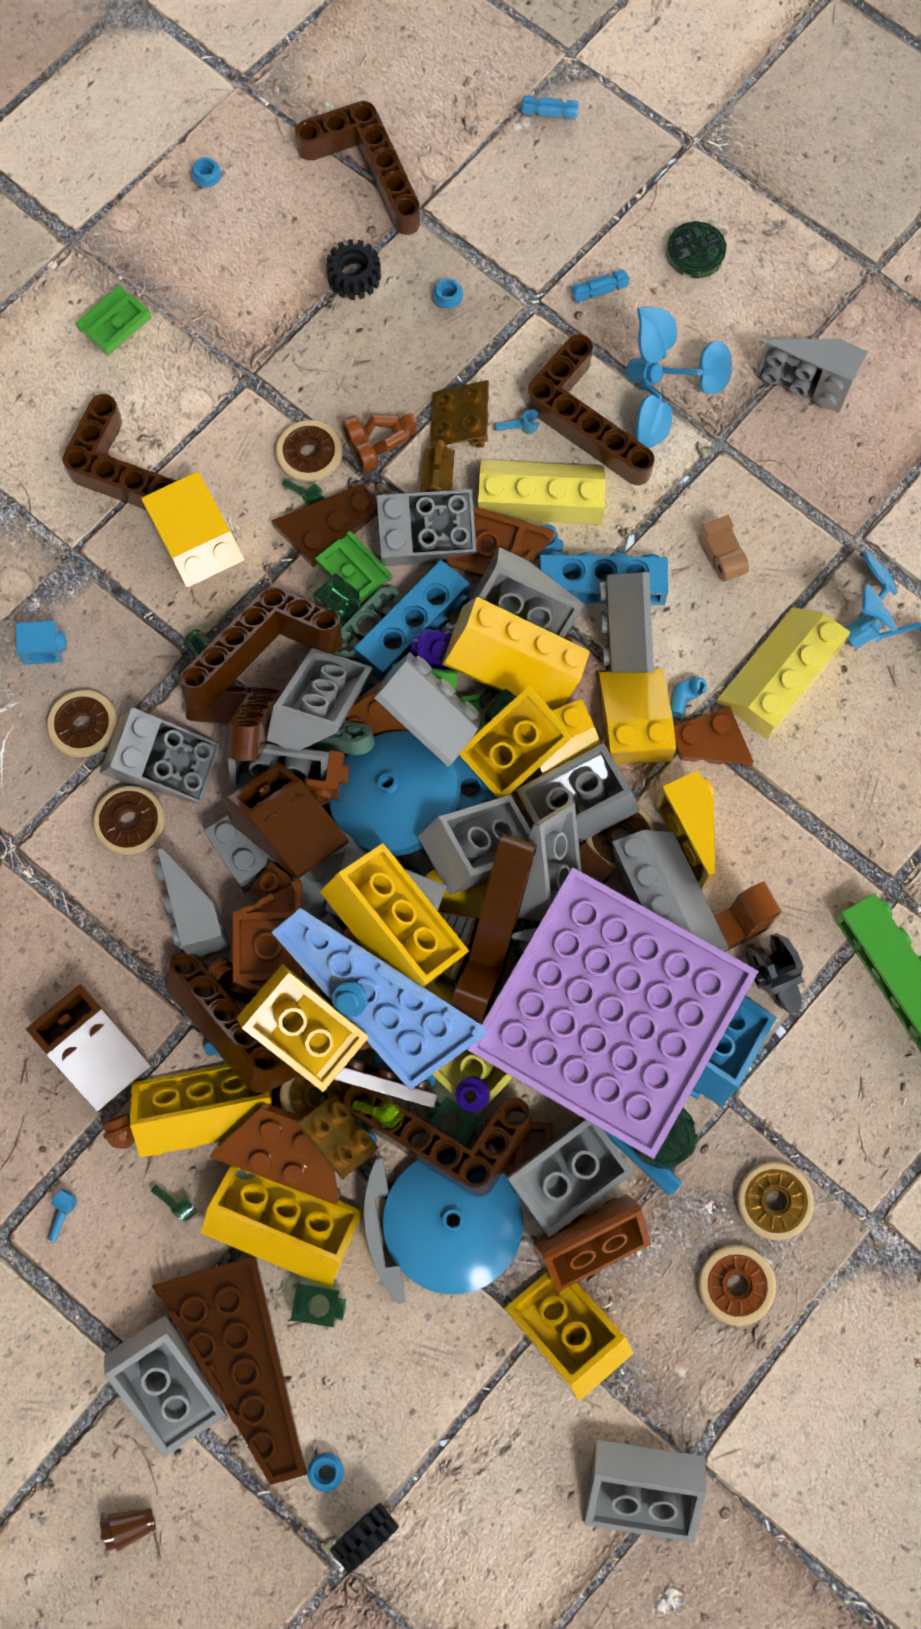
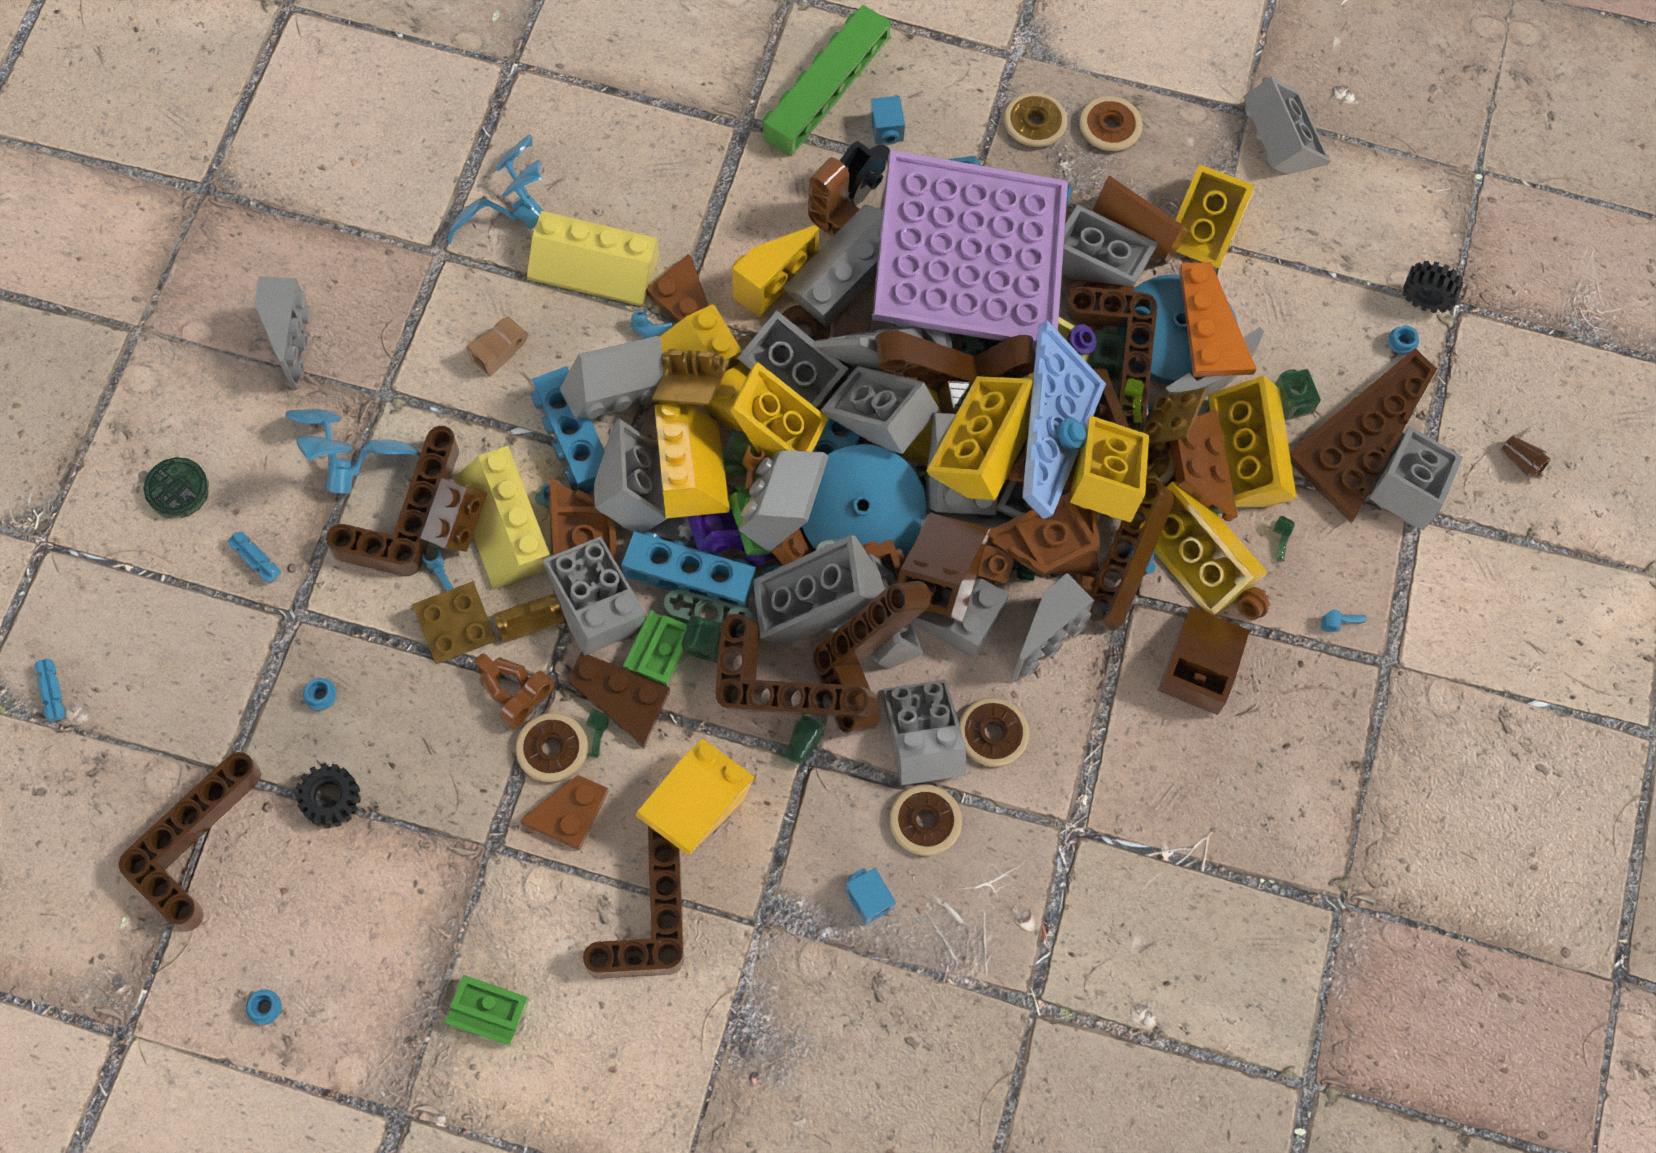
camera: 120 degrees left, 5 degrees down
(245, 443) = (568, 812): none -> dark orange wing
(426, 1244) = (1211, 327): none -> orange wing
(476, 702) = (751, 463): none -> dark orange hand
(556, 440) = (454, 515): none -> reddish brown brick
(598, 688) = (690, 377): none -> pearl gold hinge
(833, 1032) = (887, 120): none -> dark azure brick

